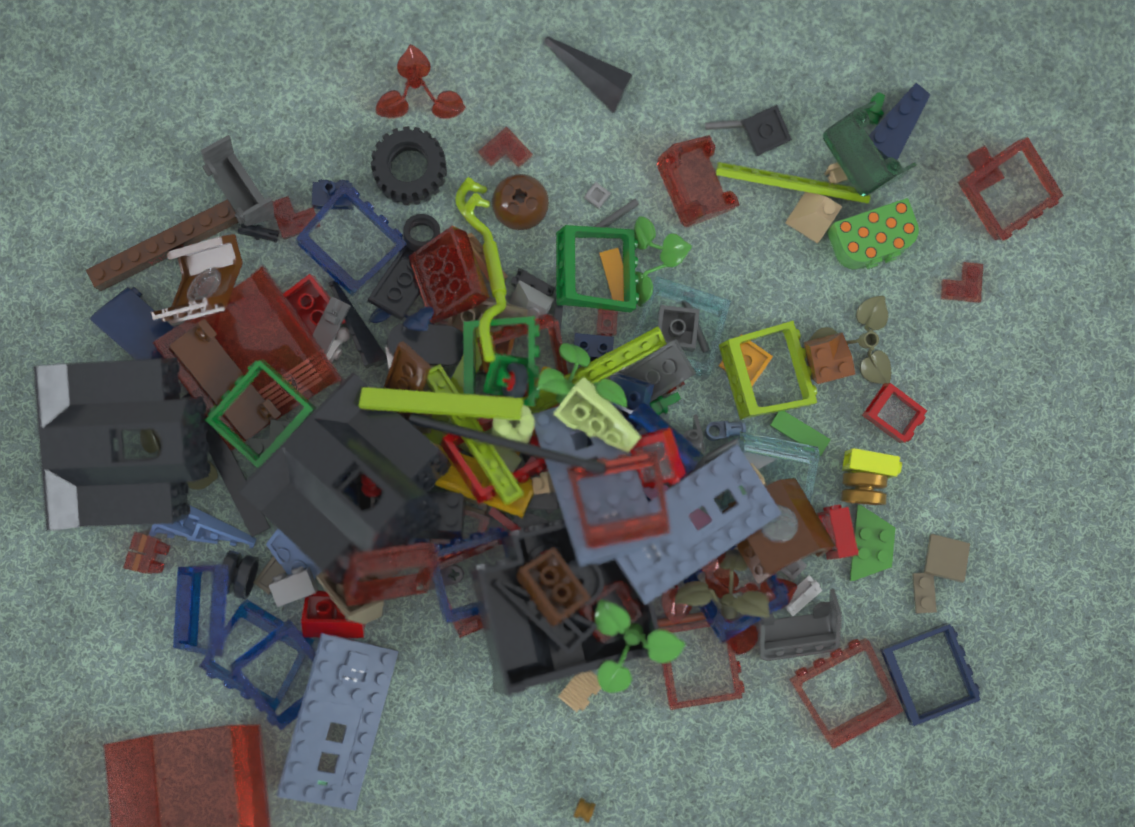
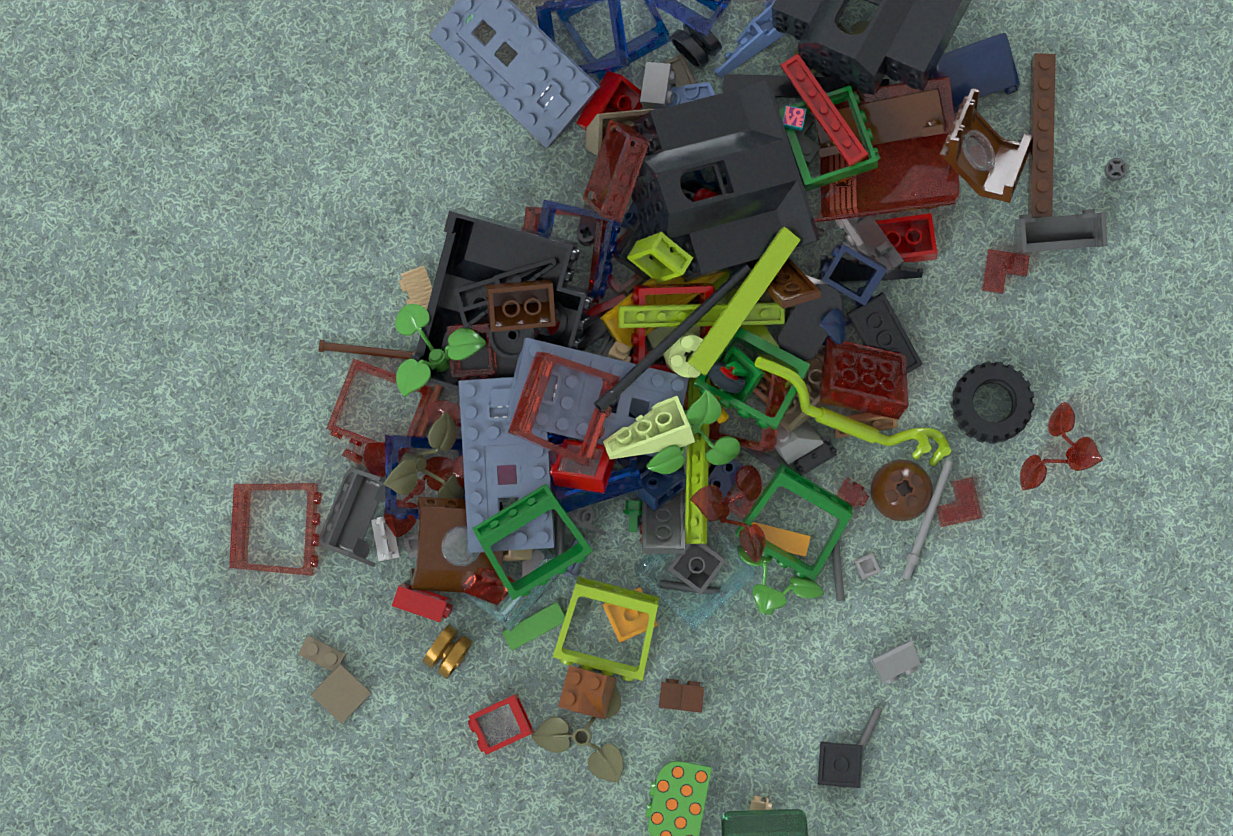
camera: 130 degrees right, 0 degrees up
(156, 169) = (1118, 165): none -> dark grey wheel
(239, 429) = (824, 110): none -> red plate
(259, 232) = (1006, 231): black pin -> none
(259, 451) = (794, 117): none -> tile
(324, 190) = (1003, 317): dark blue brick -> none
(326, 262) = (940, 276): clear blue windscreen -> none
(367, 311) = (872, 282): none -> dark blue window
(415, 220) = (937, 379): black tyre -> none
(447, 496) = (663, 264): none -> lime window
(546, 237) = (852, 493): none -> clear red brick
(571, 163) = (913, 558): none -> light grey bar
(584, 810) = (311, 234): pearl gold wheel -> none
(600, 77) = (978, 635): black wedge -> none
(624, 337) = (710, 504): none -> clear red plant
(655, 703) = (364, 350): none -> reddish brown bar
(660, 130) = (895, 662): none -> light grey slope
(693, 181) = (827, 666): clear red windscreen -> none
(729, 485) = (515, 517): none -> green windscreen
(751, 662) = (352, 456): none -> clear red tile
(787, 281) = (681, 696): none -> reddish brown brick
(790, 182) = (779, 754): lime tile -> none
(794, 484) = (486, 586): none -> clear red plate
(813, 215) = (732, 760): tan slope -> none
(871, 462) = (466, 672): neon yellow window -> none
(874, 544) = (393, 631): bright green wing -> none
(964, 670) = (231, 648): dark blue window -> none

